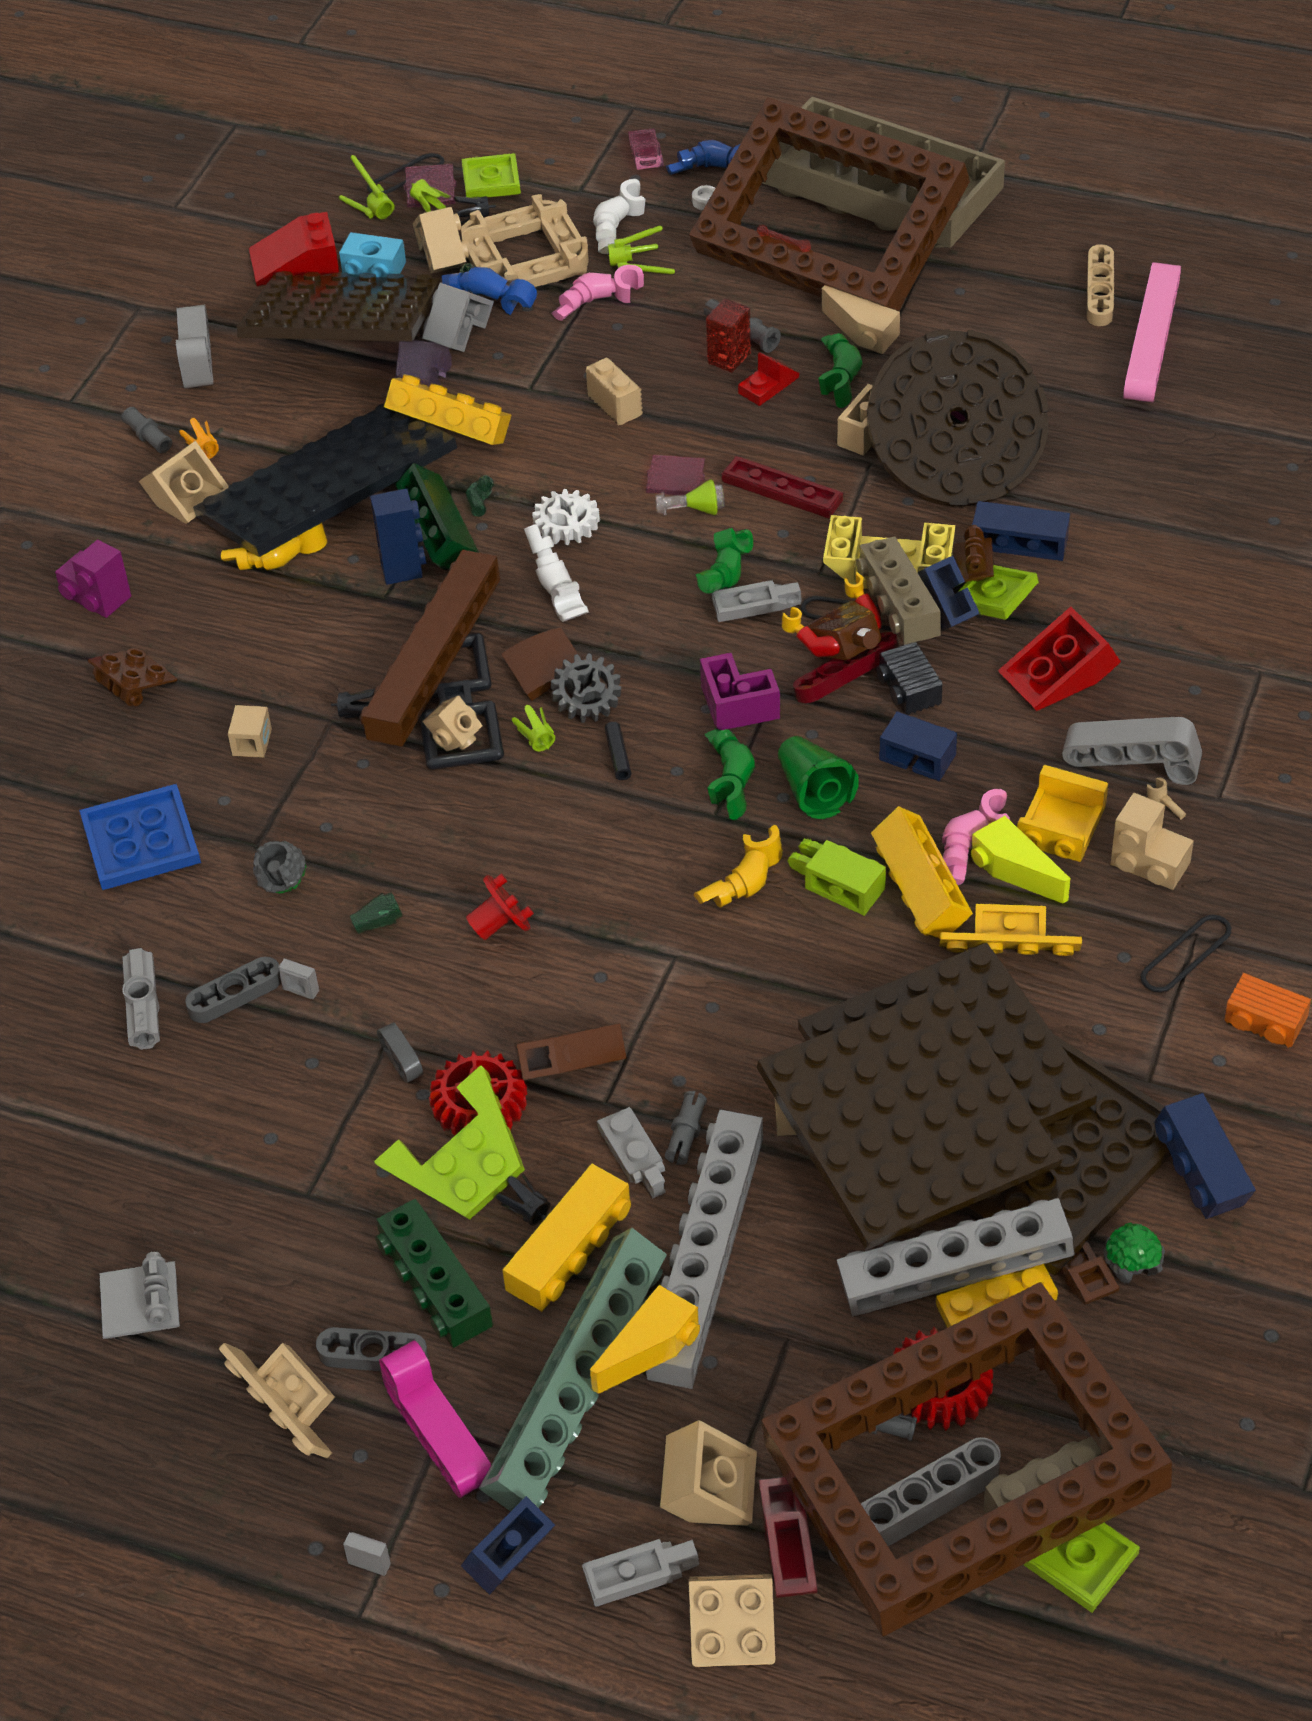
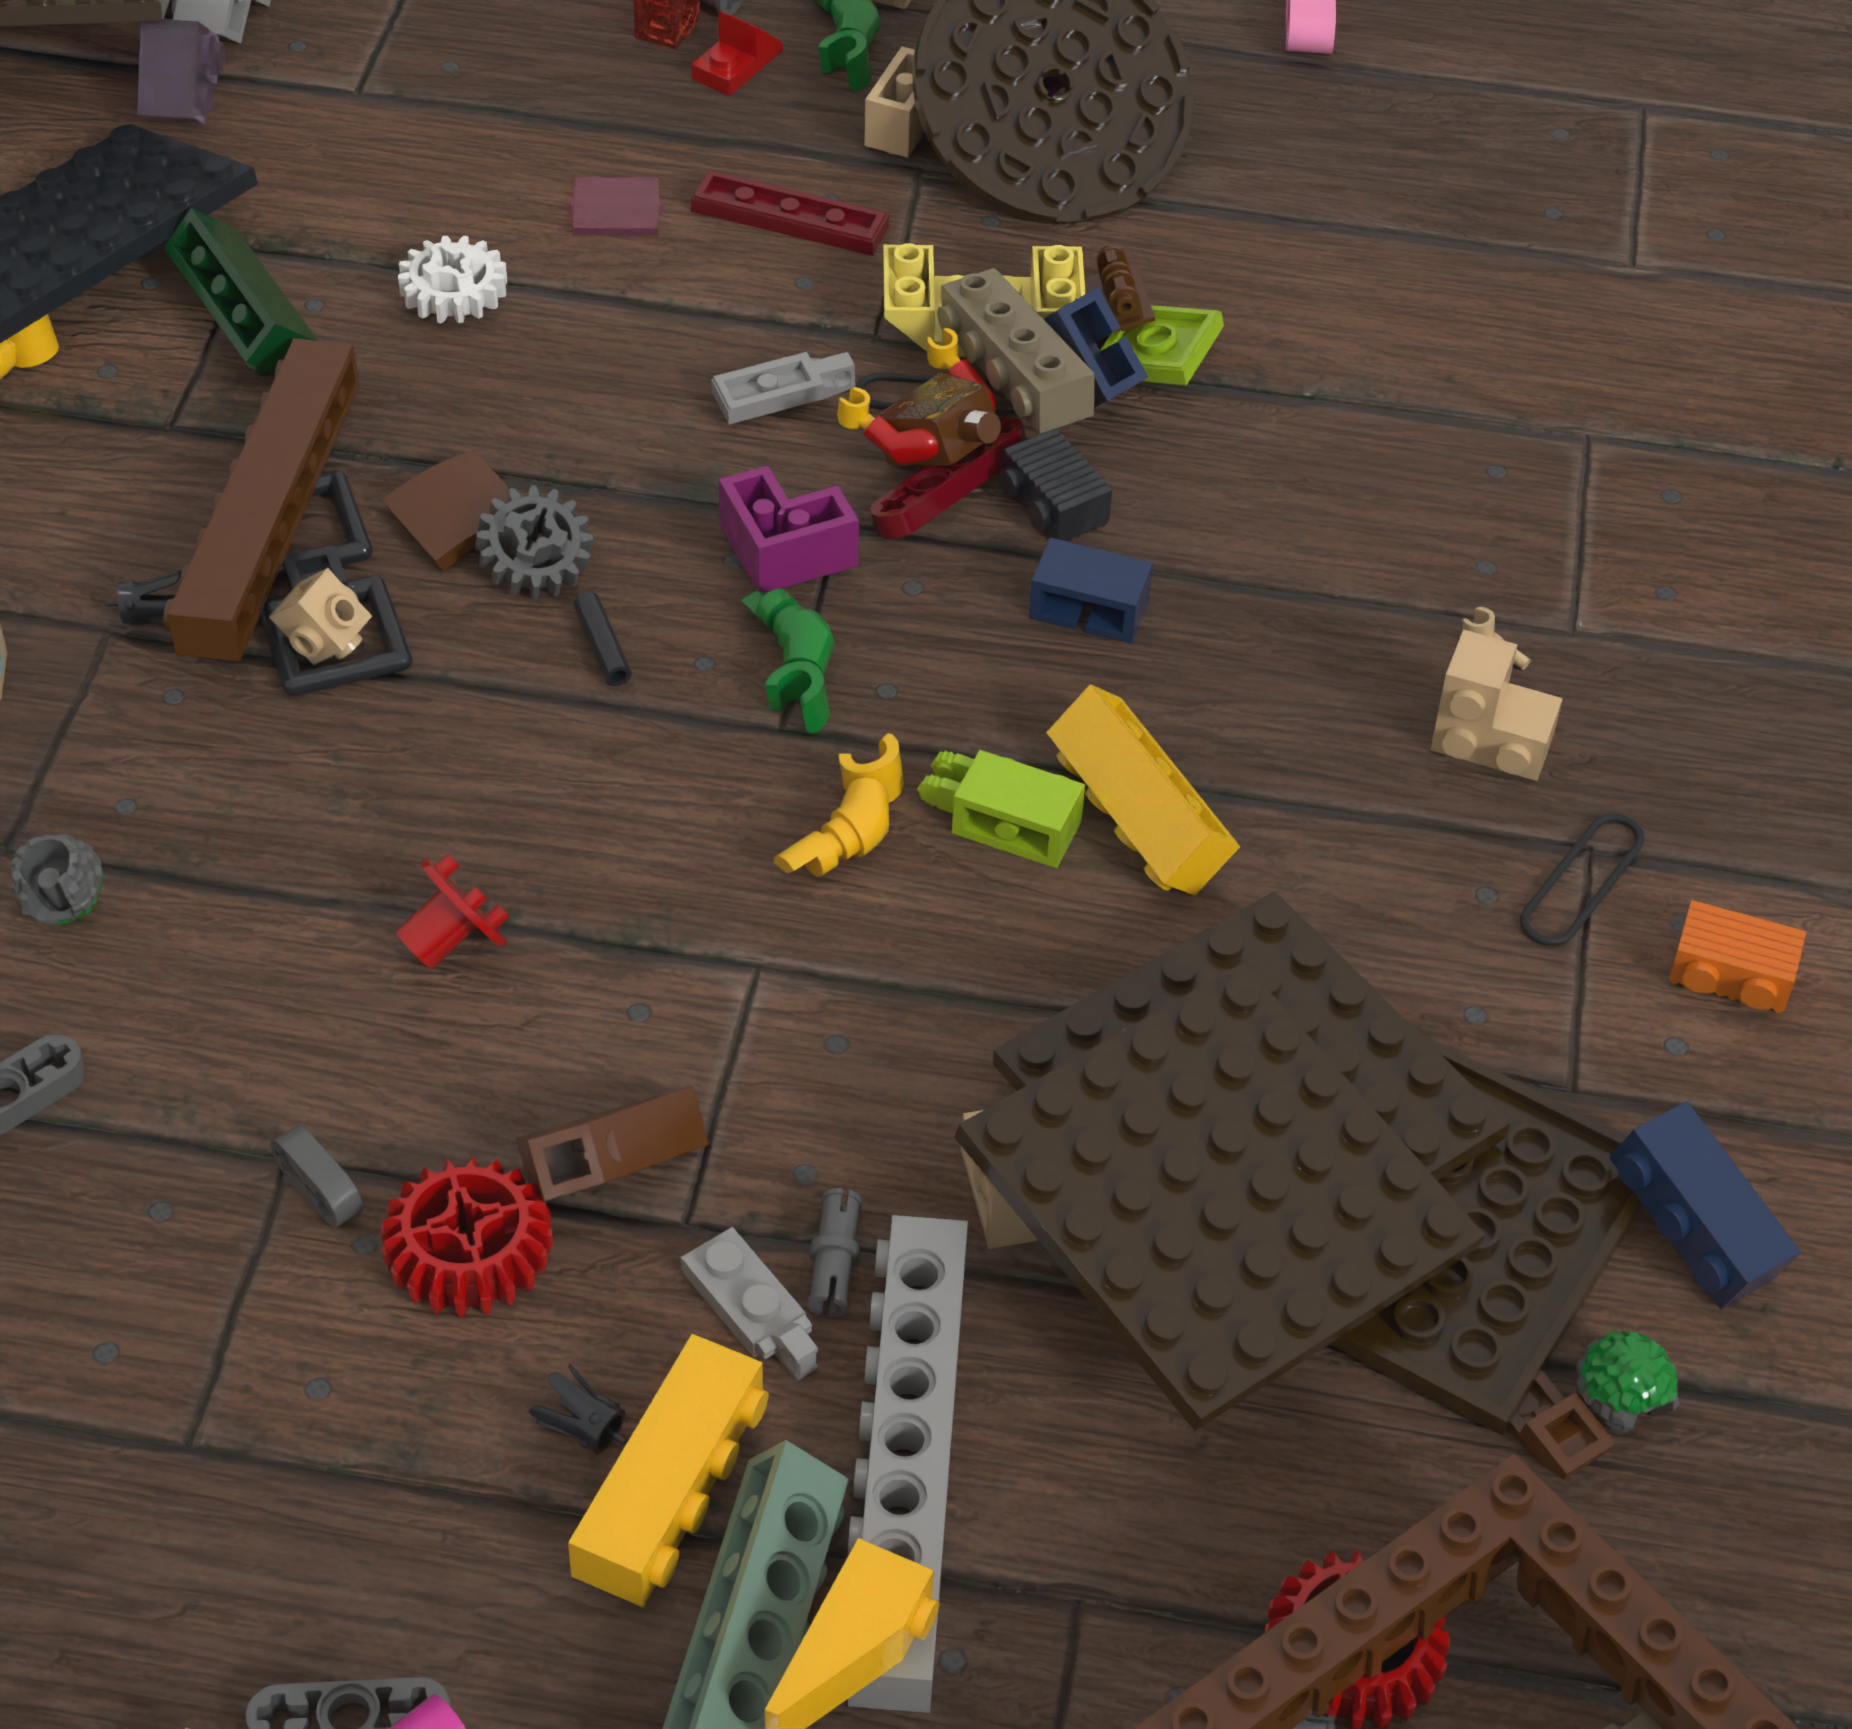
camera: 15 degrees left, 0 degrees up
(298, 979) = (118, 1067): light grey tile -> none
(377, 913) = (239, 941): clear green cone -> none
(398, 536) = (183, 323): dark blue brick -> none
(434, 1273) = (440, 1563): dark green brick -> none
(448, 410) = (231, 127): yellow brick -> none
(470, 1165) = (475, 1361): lime wing -> none
(478, 493) = (301, 253): clear green arm -> none
(541, 735) = (471, 624): lime piece -> none
(555, 577) = (451, 372): white piece -> none
(614, 391) = (496, 84): tan brick -> none
(704, 498) = (672, 236): piece -> none
(727, 566) = (728, 336): green piece -> none
(817, 777) = (941, 651): green cone -> none
(959, 831) = (1193, 715): bright pink piece -> none
(975, 1264) = (1323, 1453): light grey brick -> none
(976, 1297) = (1408, 1485): yellow plate -> none
(1011, 928) = (1303, 865): yellow bracket -> none
(1016, 860) = (1289, 756): neon yellow slope -> none
(1024, 530) = (1185, 249): dark blue brick -> none
(1060, 661) = (1286, 441): red slope -> none
(1064, 812) = (1341, 675): yellow panel -> none
(1137, 742) = (1434, 555): light grey beam -> none

